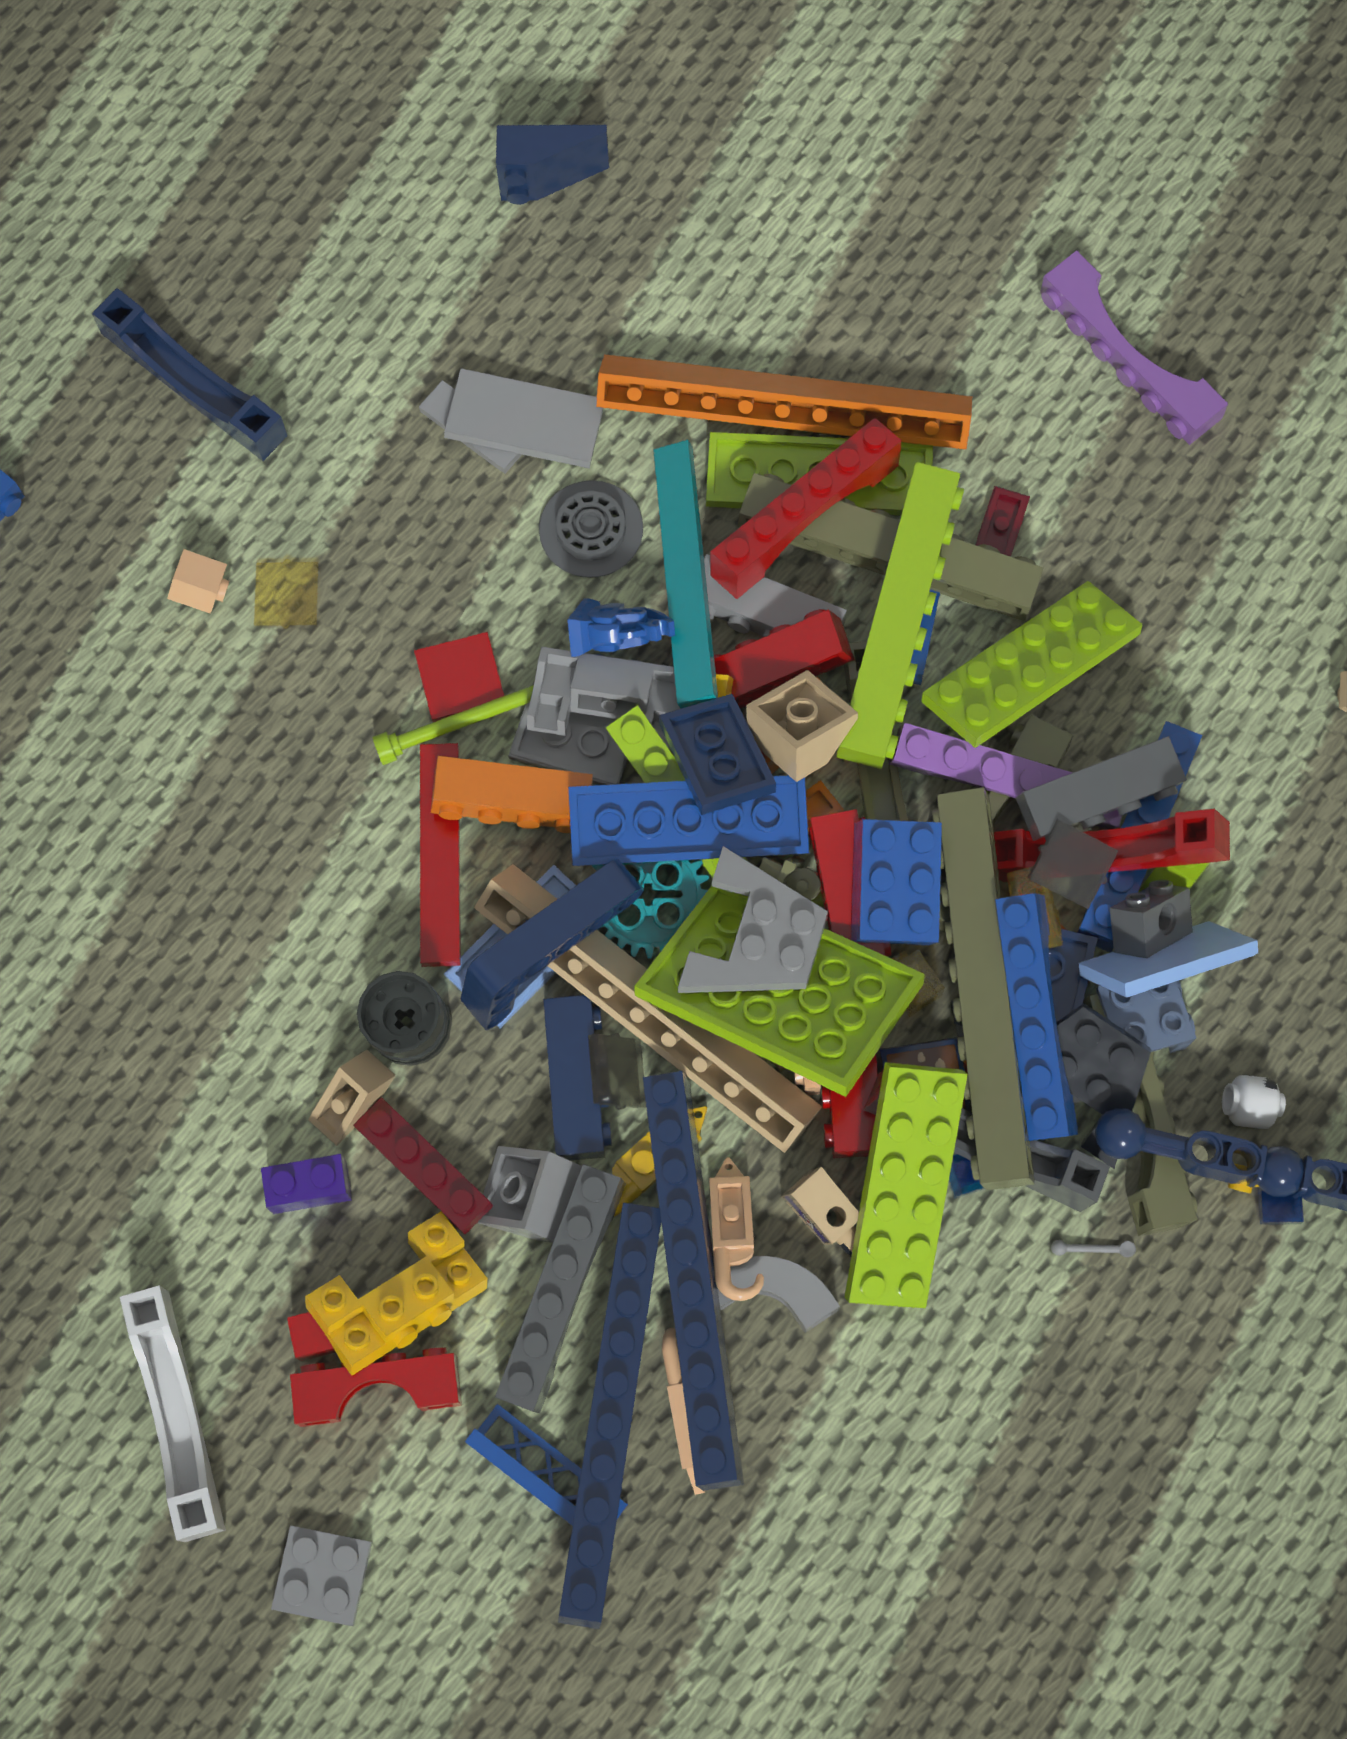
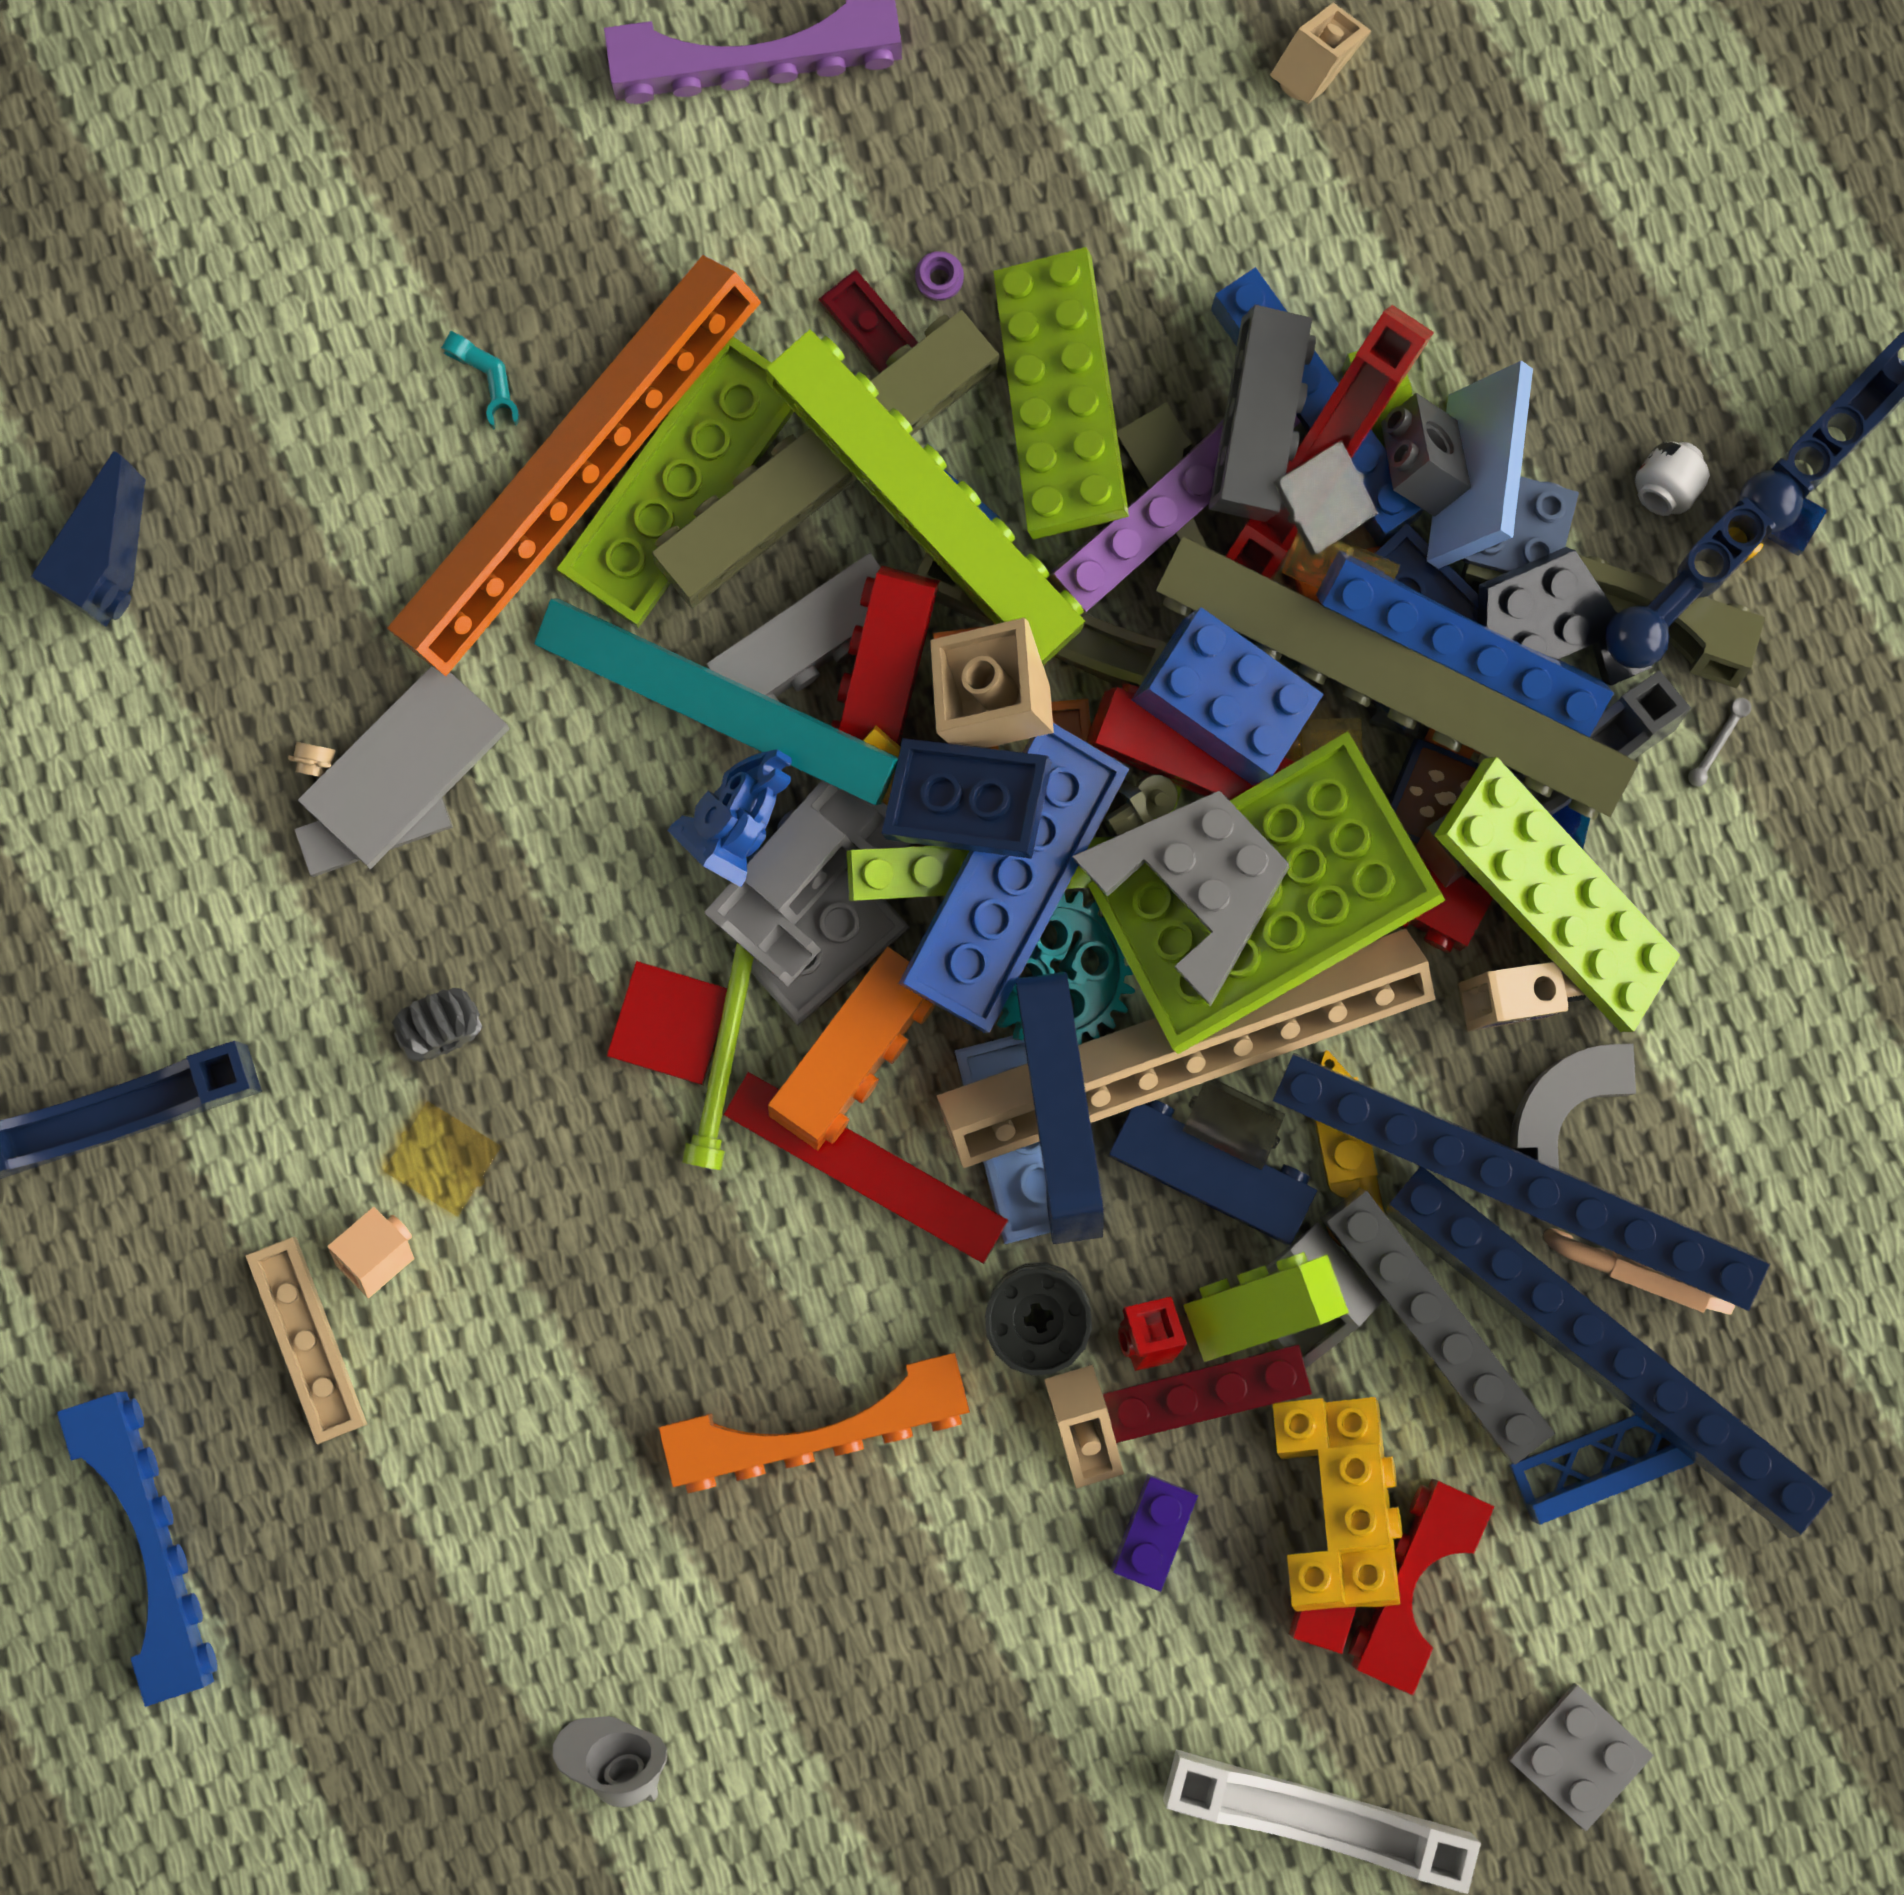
camera: 60 degrees left, 10 degrees up
(118, 579) = (306, 1340): none -> tan plate
(312, 980) = (702, 1450): none -> orange arch
(368, 533) = (437, 1024): none -> dark grey gear
(439, 1099) = (1144, 1336): none -> red brick
(493, 363) = (312, 759): none -> tan plate
(502, 1159) = (1265, 1305): none -> lime brick
(591, 526) = (583, 771): dark grey wheel -> none
(732, 1229) = (1482, 1105): light nougat plate -> none
(752, 548) = (727, 523): red arch -> none
(815, 321) = (467, 353): none -> teal arm
(1065, 540) = (939, 261): none -> medium lavender plate

